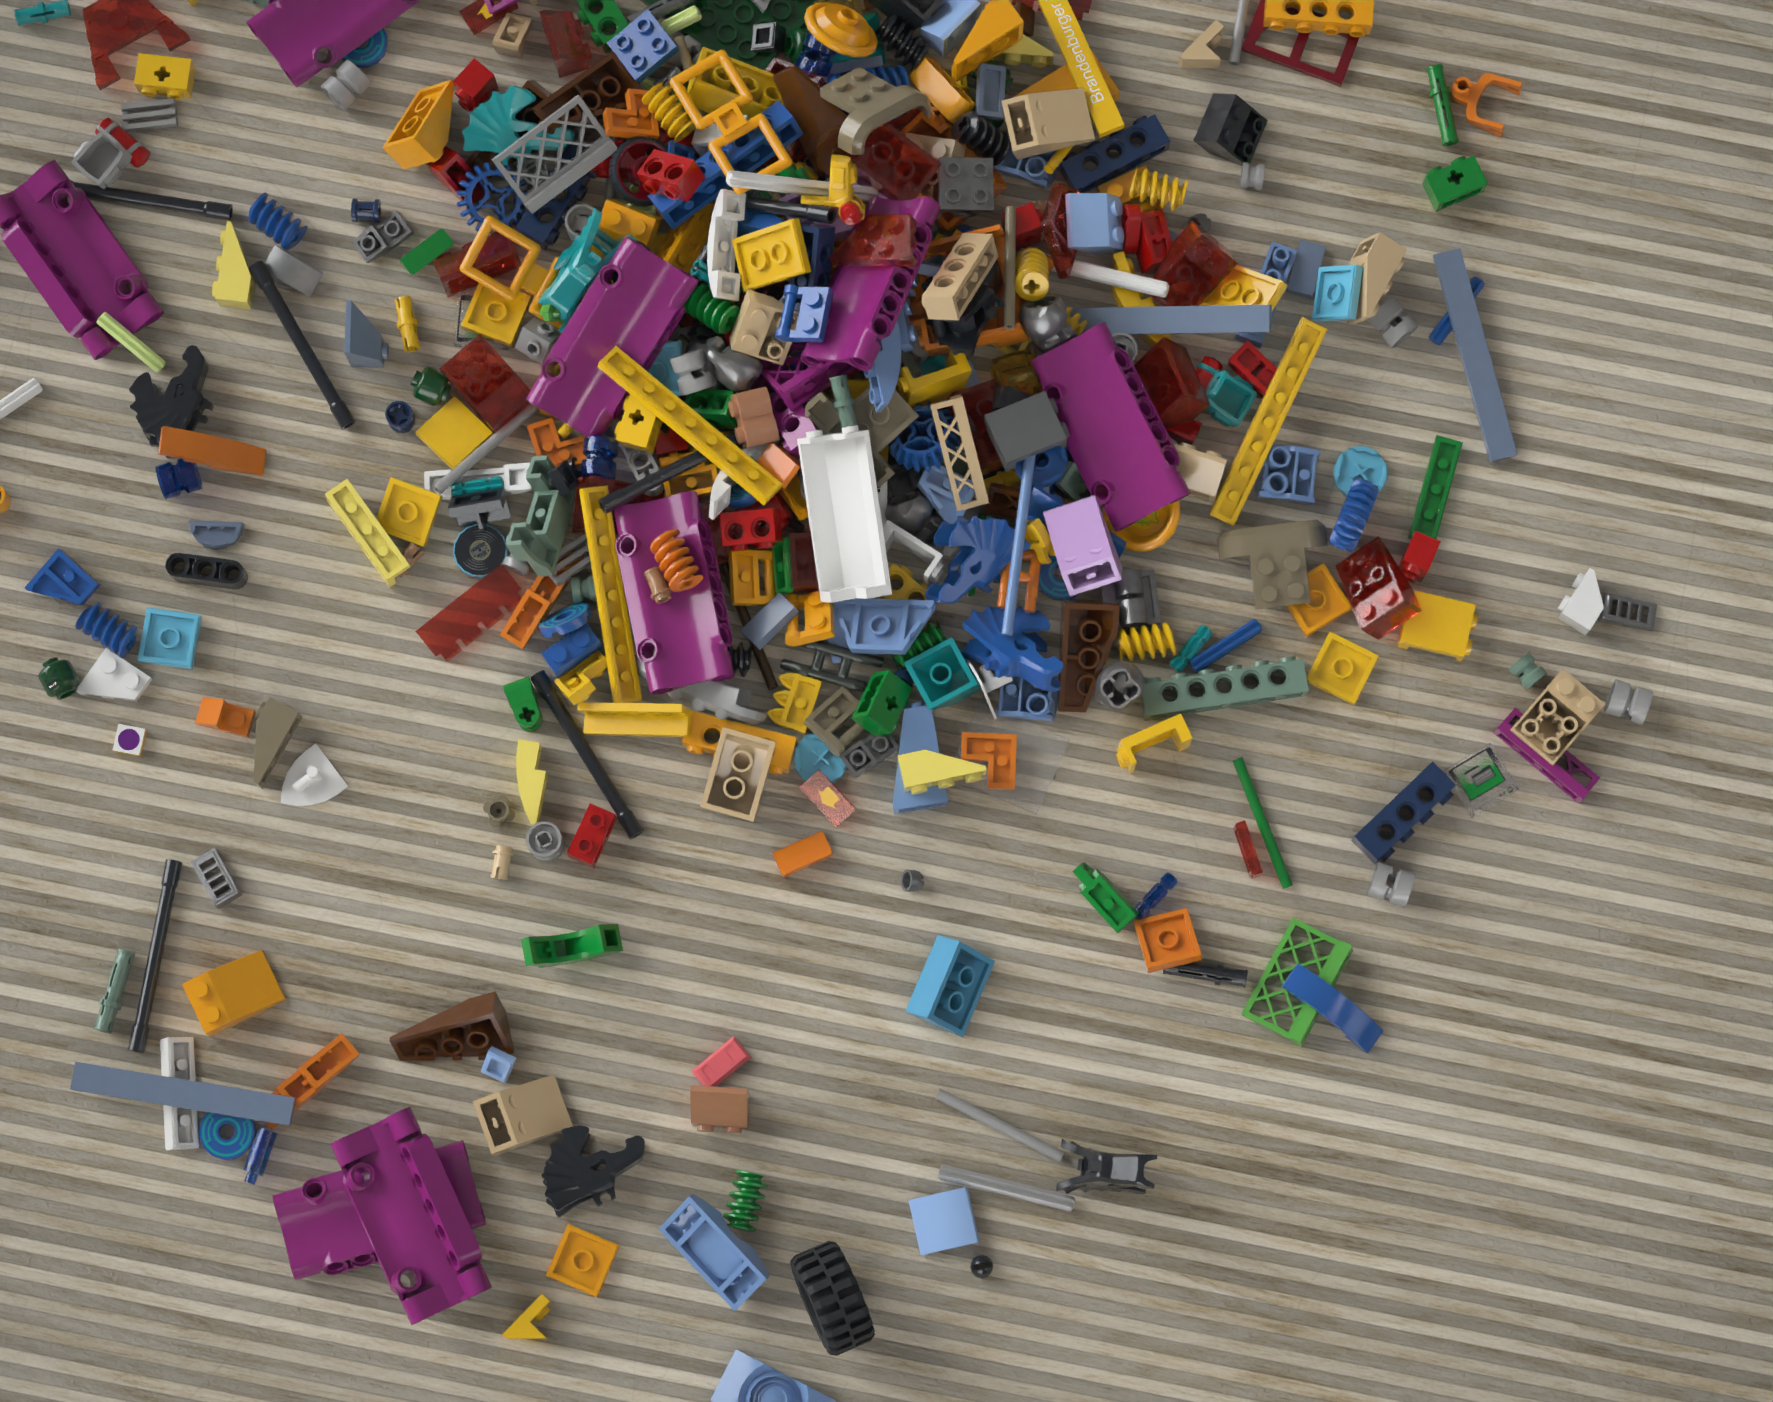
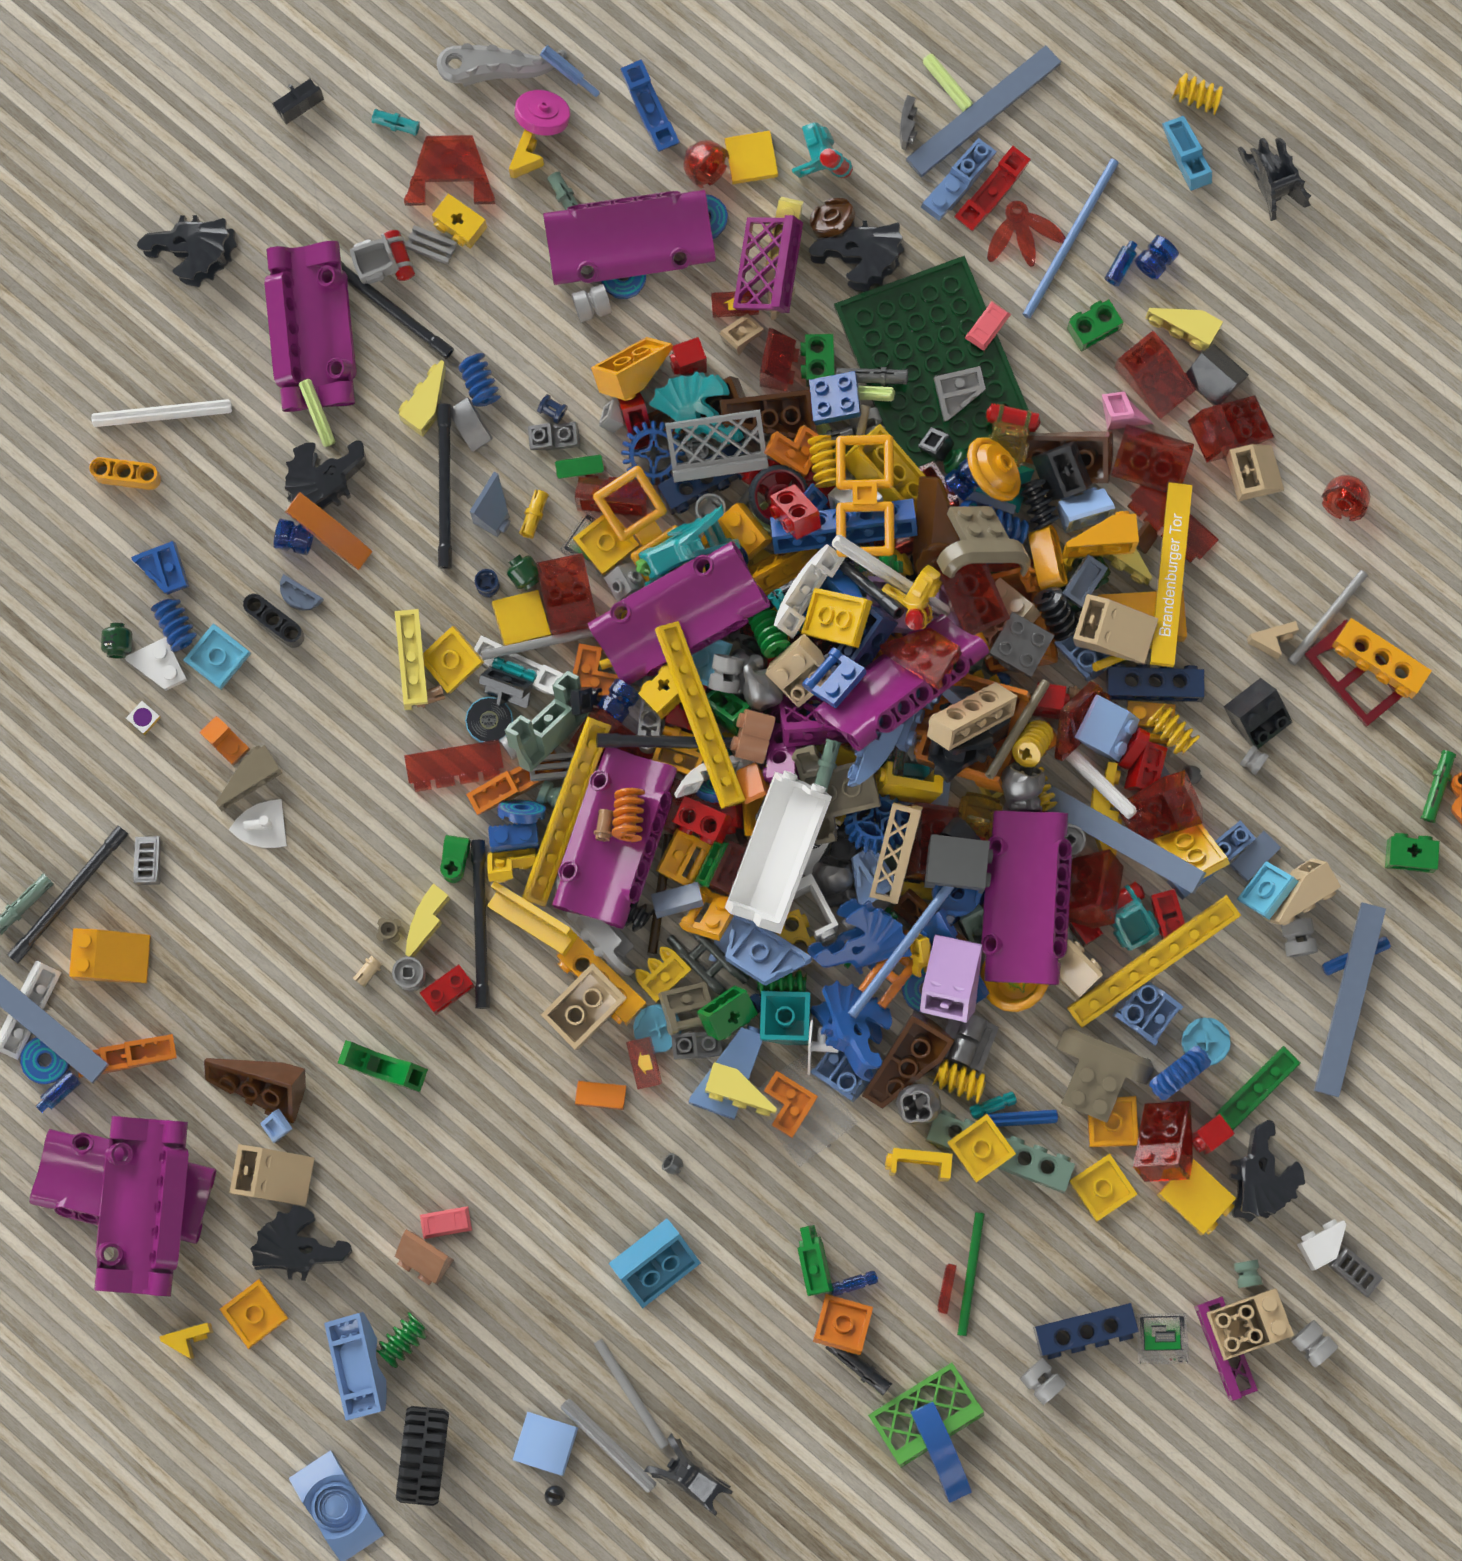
camera: 30 degrees right, 0 degrees up
(430, 186) = (611, 416): none -> light grey slope
(1204, 694) = (981, 1148): none -> yellow tile
(1490, 582) = (1259, 1189): none -> black animal

